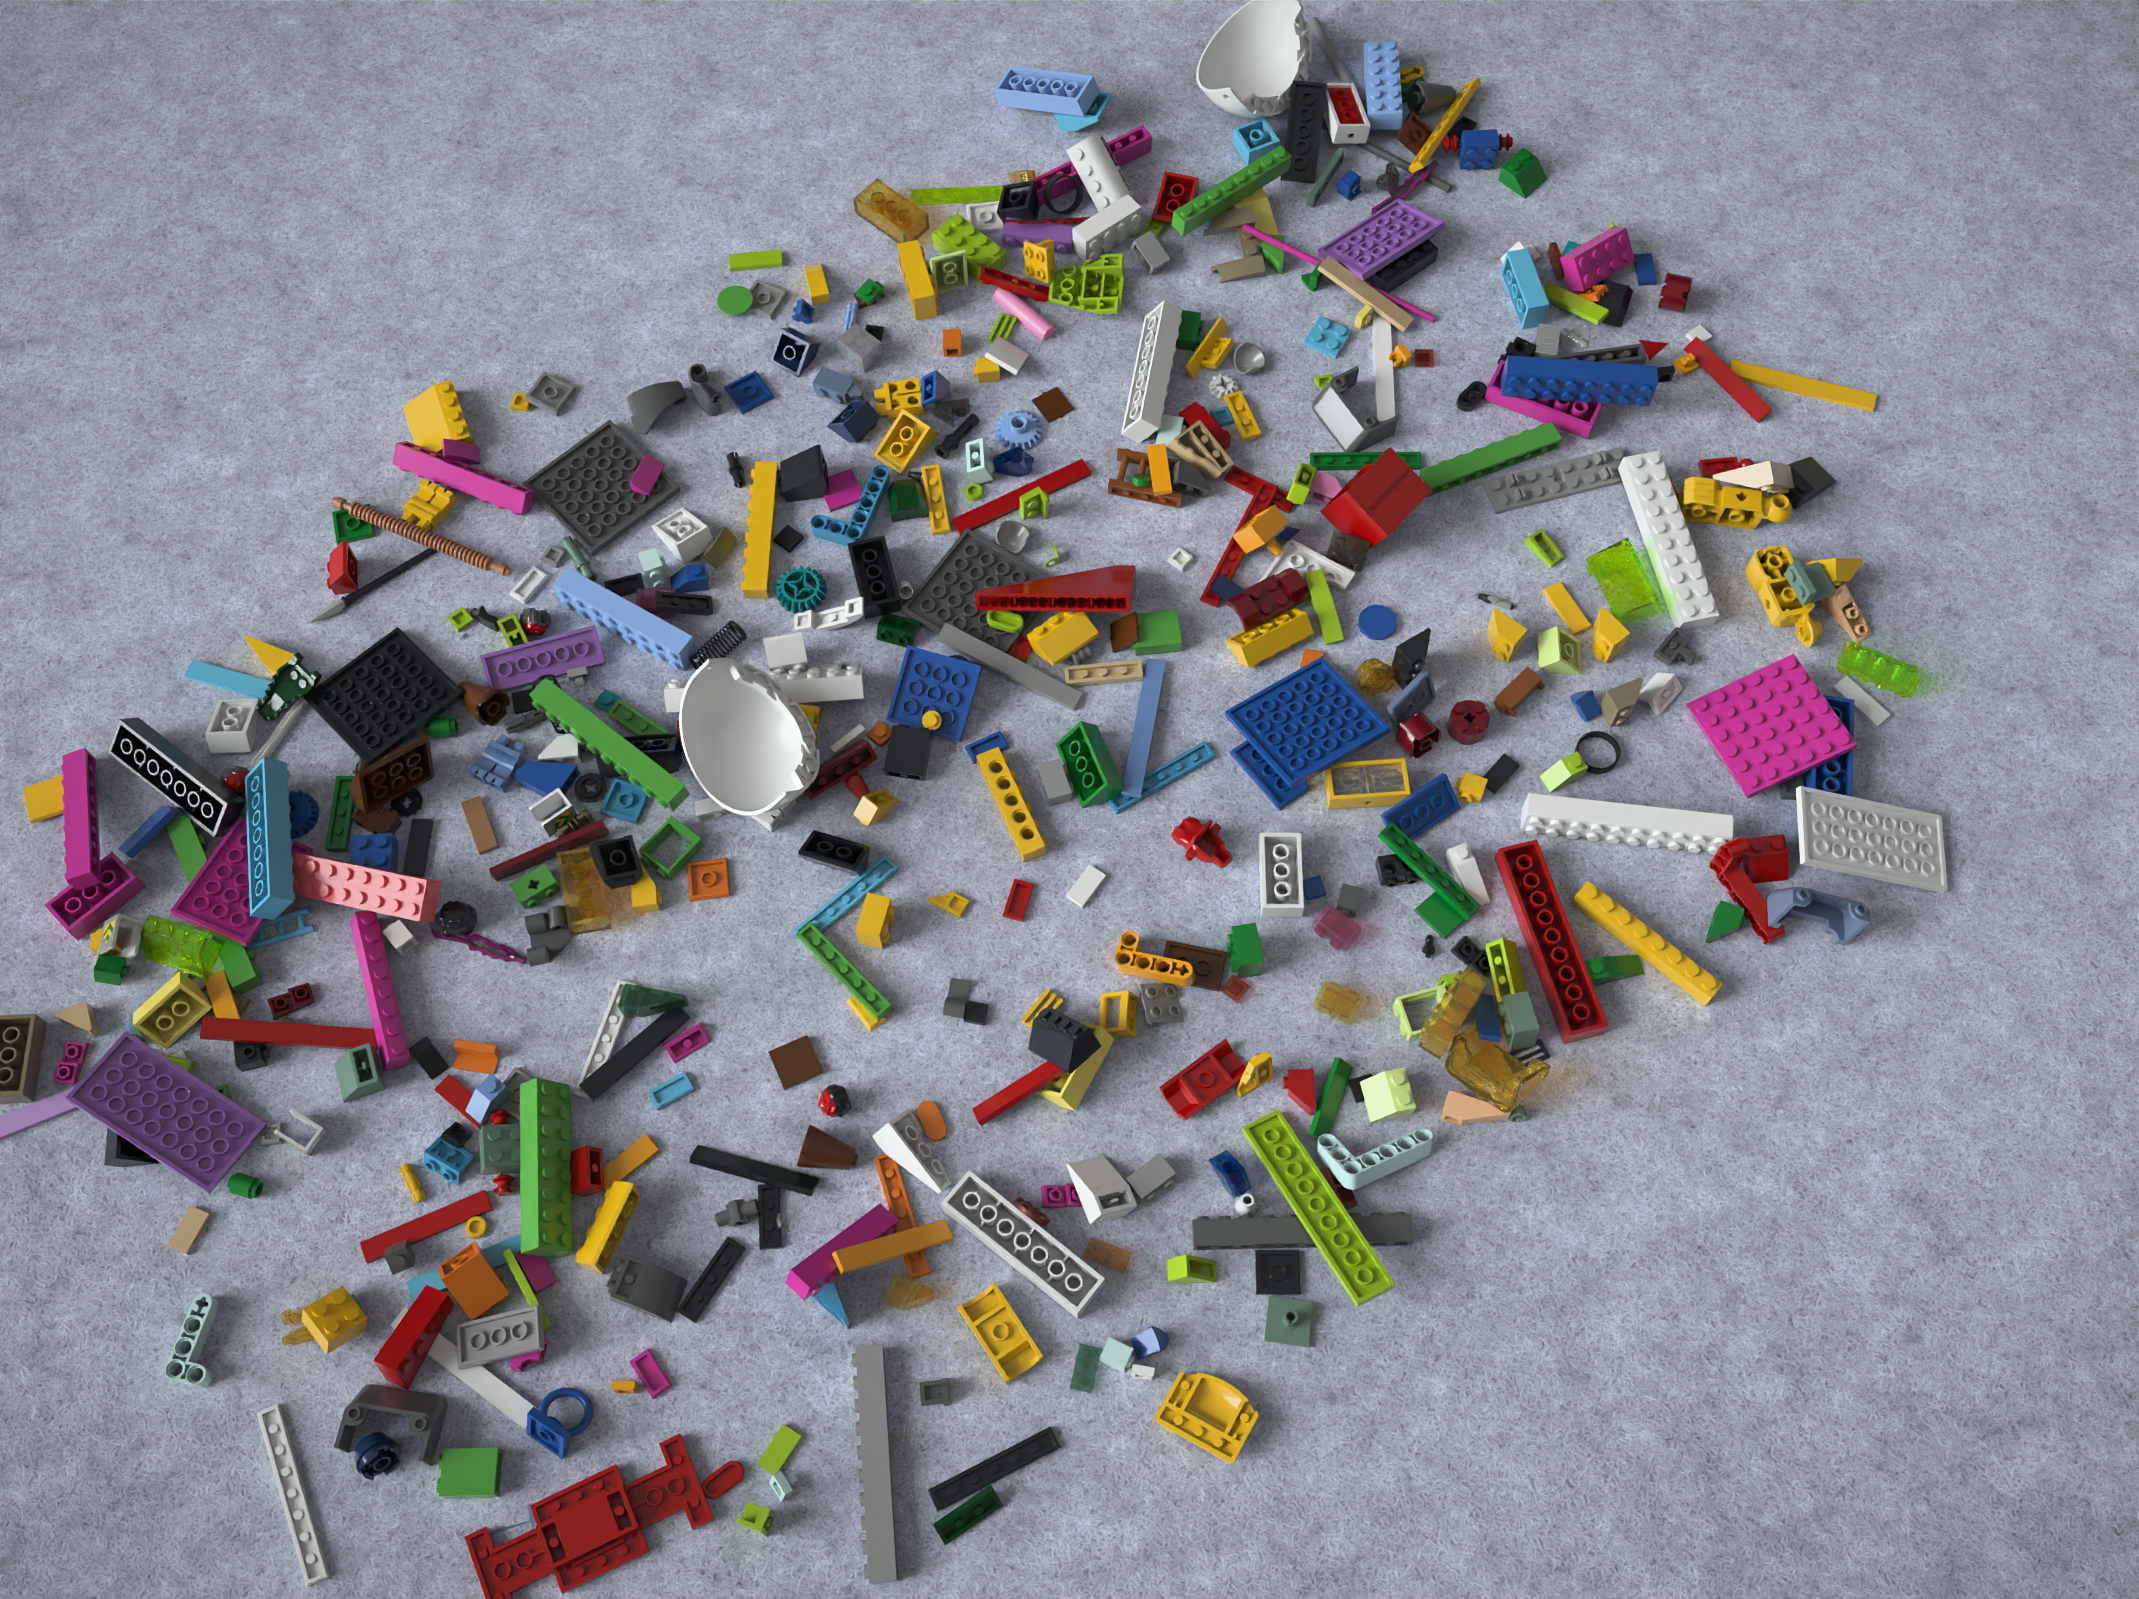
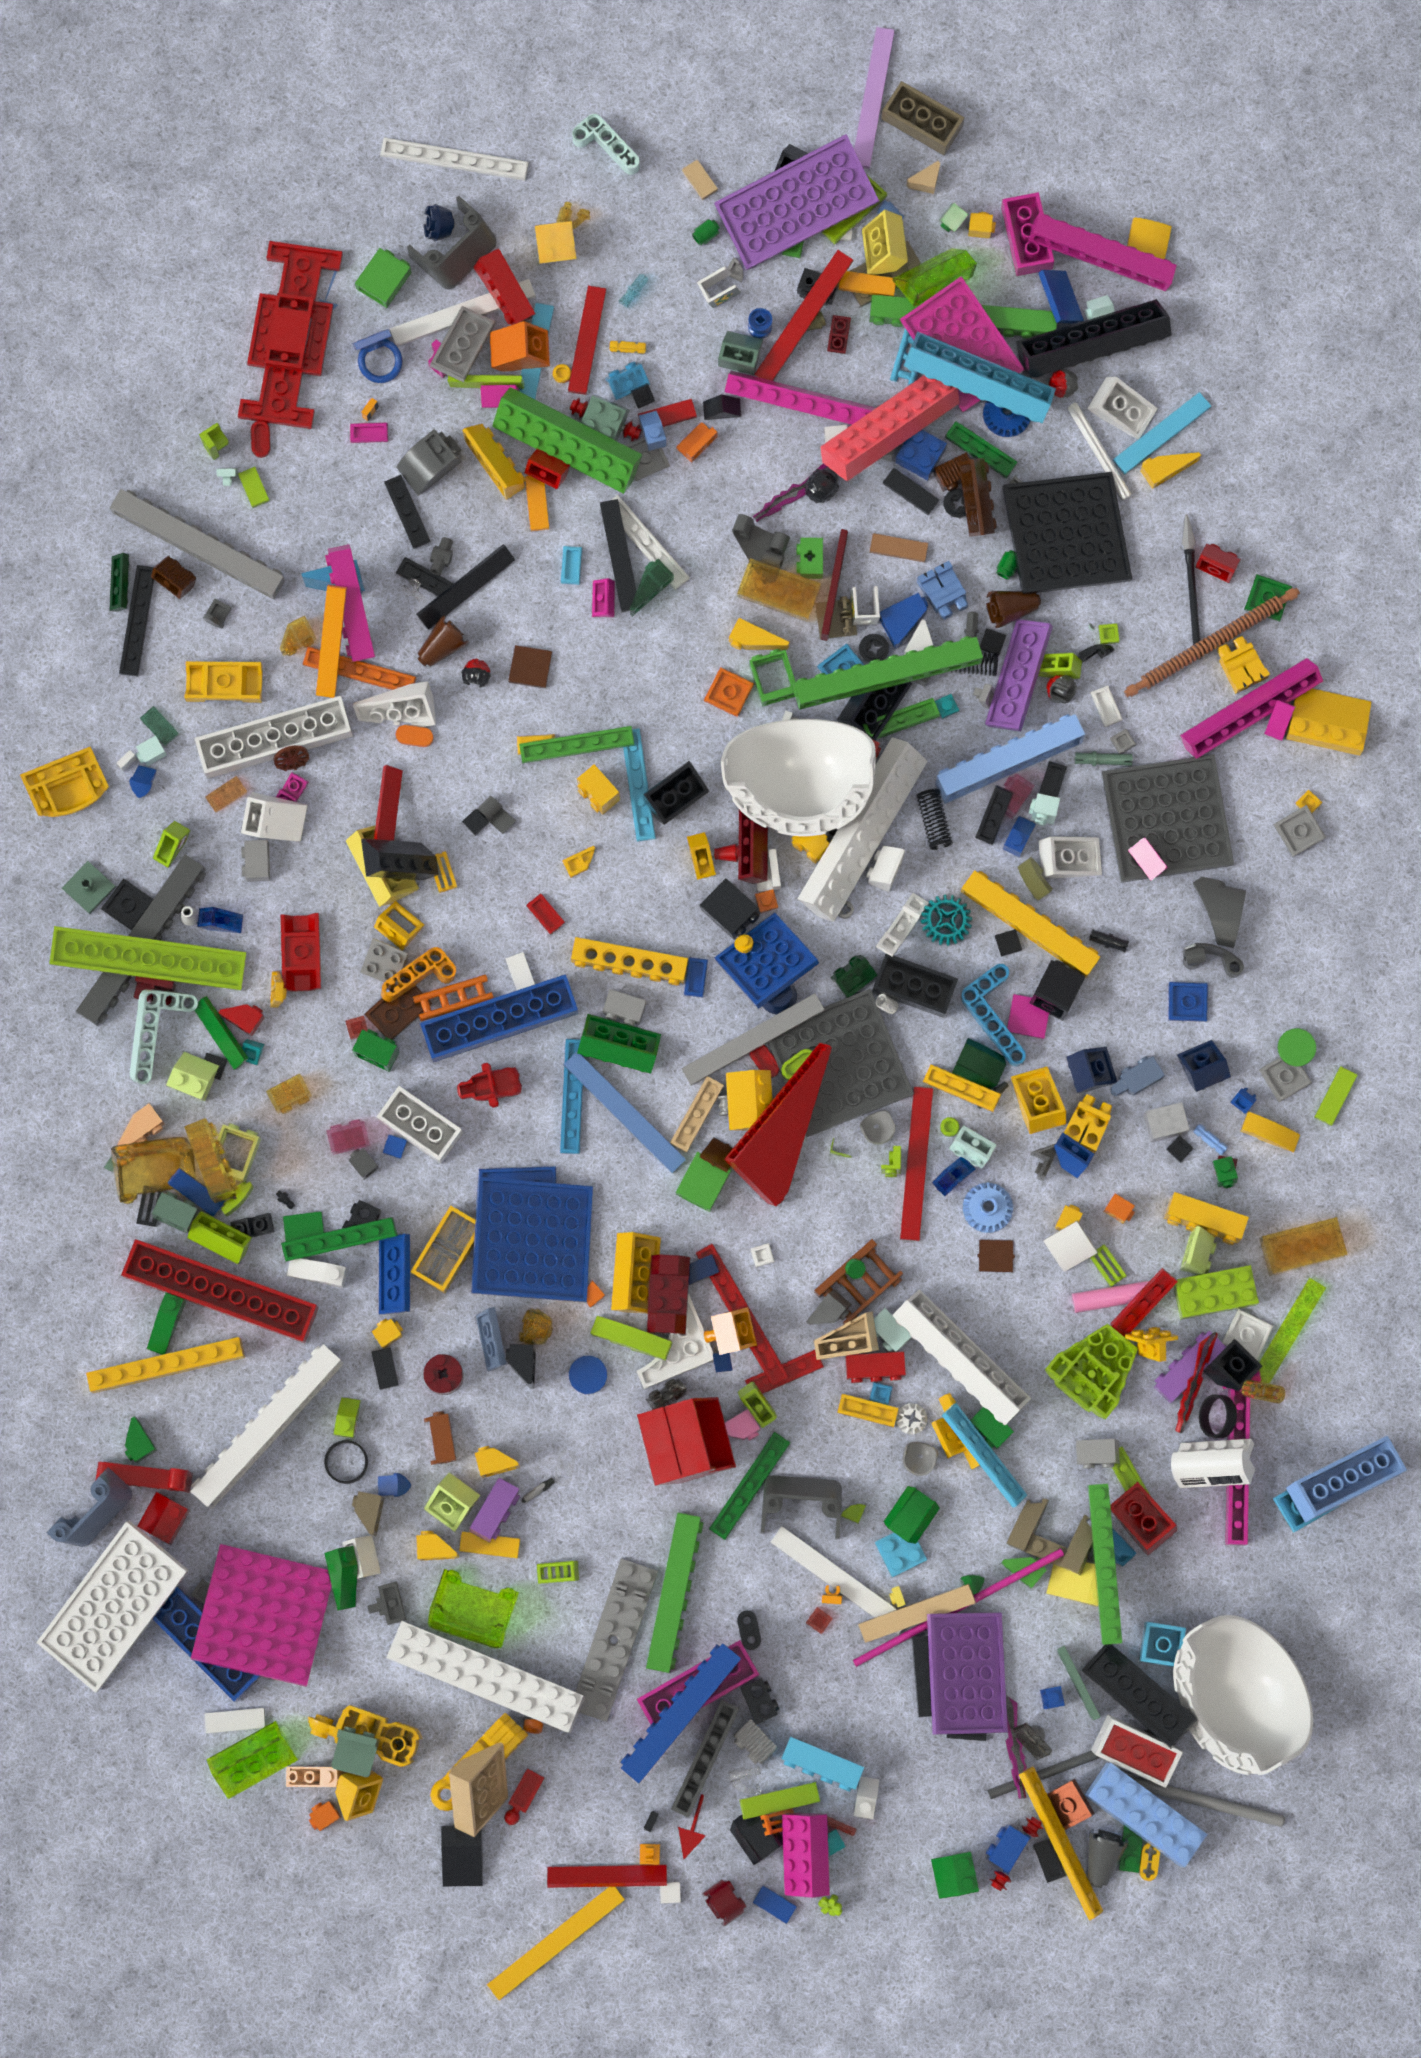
camera: 125 degrees right, 15 degrees up
(72, 1062) = (895, 158): dark pink slope -> none
(132, 936) = (978, 228): white piece -> none
(142, 794) = (1099, 307): none -> light aqua brick
(288, 686) = (1124, 462): dark green animal -> none
(318, 1072) = (760, 323): none -> blue wheel
(347, 1215) = (633, 290): none -> clear light blue axle
(399, 1256) = (572, 308): dark grey brick -> none
(617, 861) = (780, 623): black slope -> none
(926, 1460) = (173, 577): none -> reddish brown brick
(952, 440) = (1013, 1140): black pin -> none
(1107, 228) = (1149, 1428): white brick -> none
(1140, 871) = (499, 1018): none -> blue brick
(1150, 935) = (464, 1001): none -> orange bar
(1159, 469) = (854, 1290): light orange tile -> none
(1213, 318) = (984, 1455): none -> medium azure tile
(1297, 341) = (911, 1515): none -> green slope
(1322, 1063) = (253, 1050): none -> teal slope
(1417, 735) = (459, 1321): dark red brick -> none
(1542, 614) = (495, 1510): none -> medium lavender brick
(1683, 694) = (343, 1576): none -> green slope
(1868, 589) = (323, 1815): none -> orange brick

